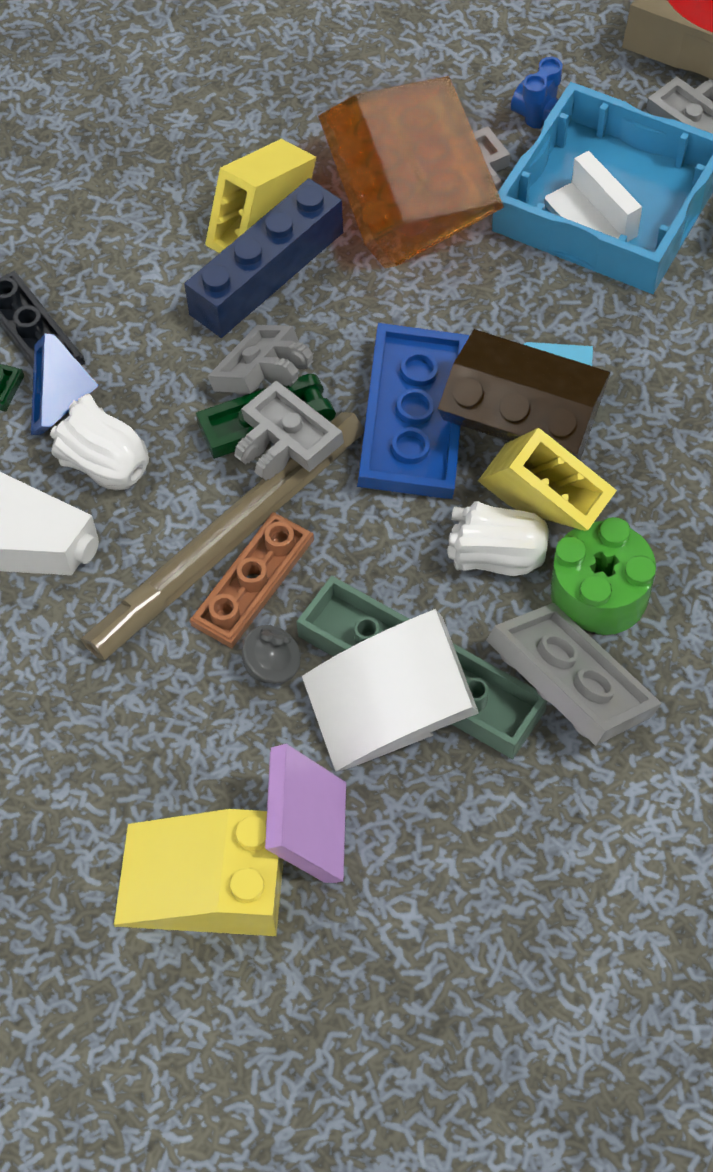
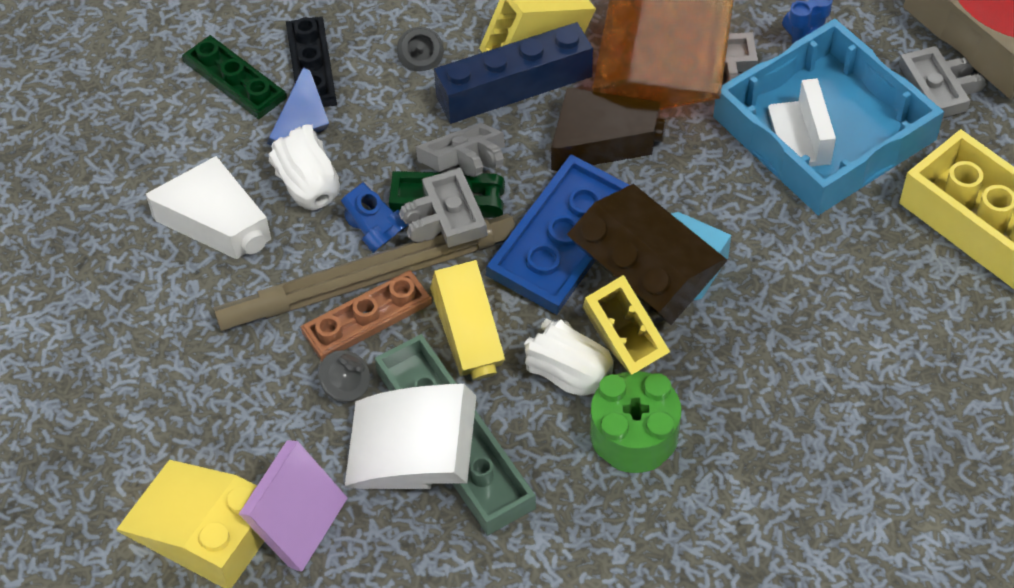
camera: 25 degrees right, 5 degrees down
(144, 268) = (420, 49): none -> dark grey hat
(196, 467) = (377, 224): none -> blue plate
(372, 541) = (467, 320): none -> light yellow slope
(394, 282) = (605, 128): none -> dark brown slope
(573, 673) = (567, 486): light grey plate -> none

